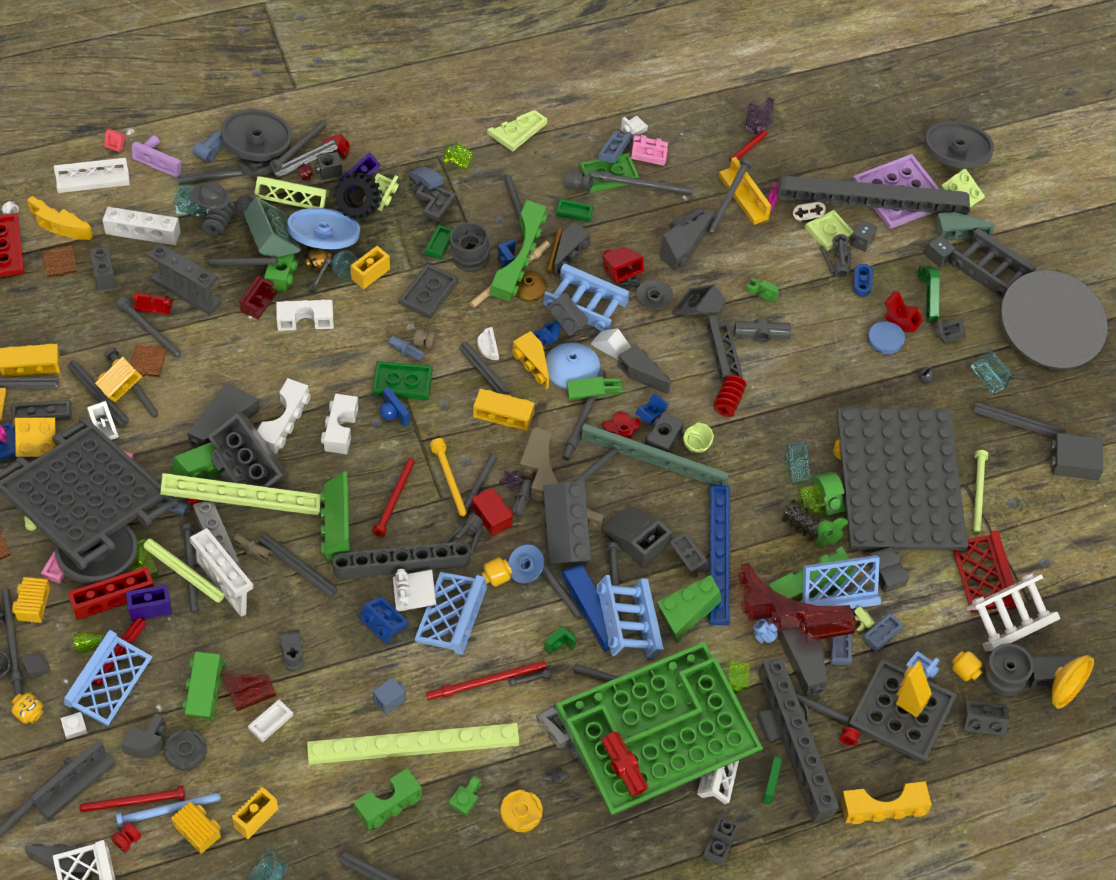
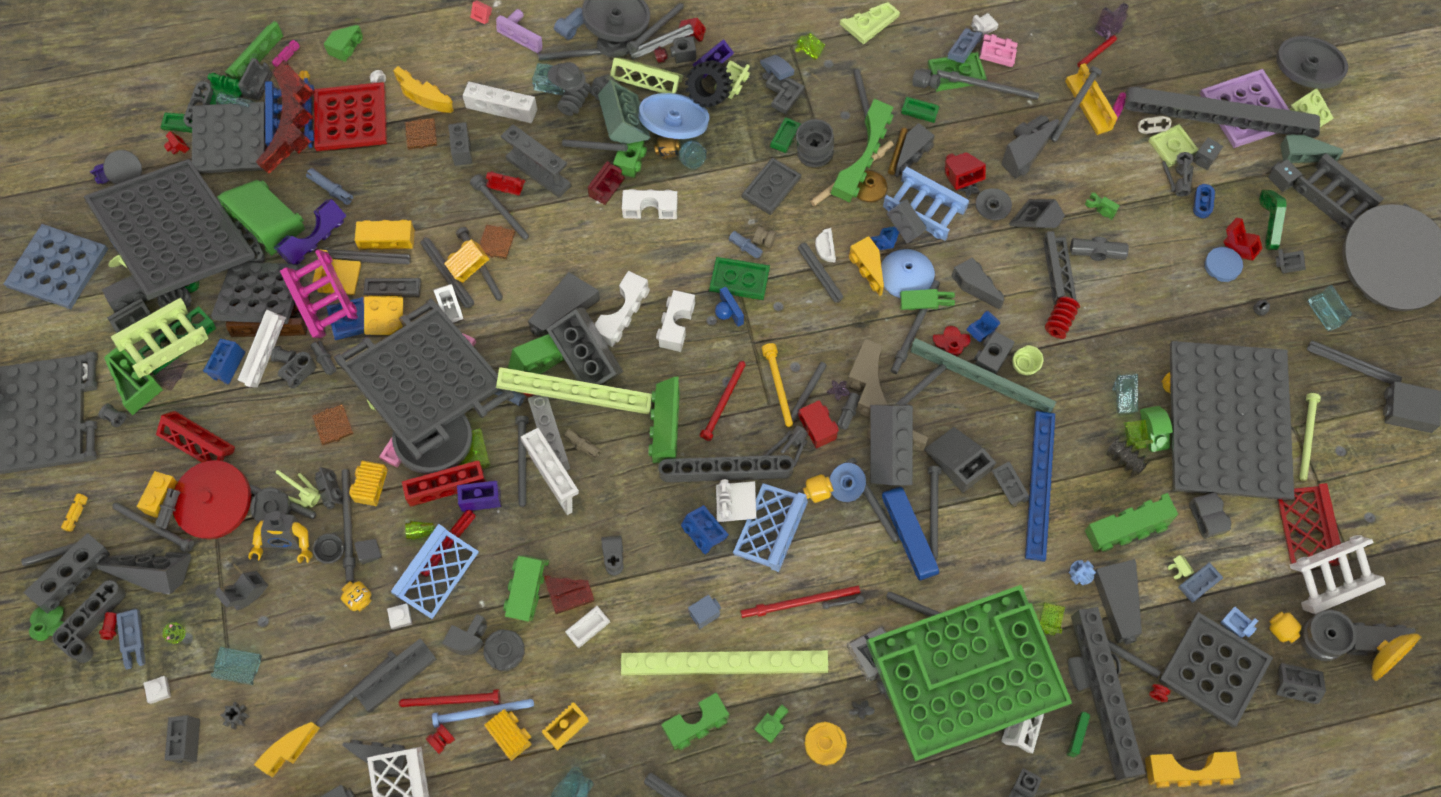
camera: 10 degrees right, 10 degrees up
(92, 177) = (457, 49): white fence -> none
(184, 570) = (515, 464): yellowish green axle -> none
(224, 459) = (560, 353): dark grey hinge -> none
(298, 565) = (634, 474): dark grey axle -> none
(313, 287) = (659, 175): dark grey hinge -> none
(370, 267) = (716, 159): yellow brick -> none
(503, 409) = (836, 316): yellow brick -> none
(505, 252) = (848, 151): blue bracket -> none
(558, 638) = (871, 567): green bracket -> none
(611, 342) = (947, 252): white slope -> none
(624, 764) = (932, 712): red piece -> none
(643, 608) = (963, 546): light blue fence -> none
(688, 606) = (1006, 541): bright green wedge -> none
(813, 620) = (1133, 570): clear red arch -> none
(830, 531) = (1155, 472): bright green plate -> none
(841, 650) = (1157, 593): sand blue plate -> none
(855, 597) = (1162, 546): light blue fence -> none
(914, 690) = (1231, 655): yellow slope -> none

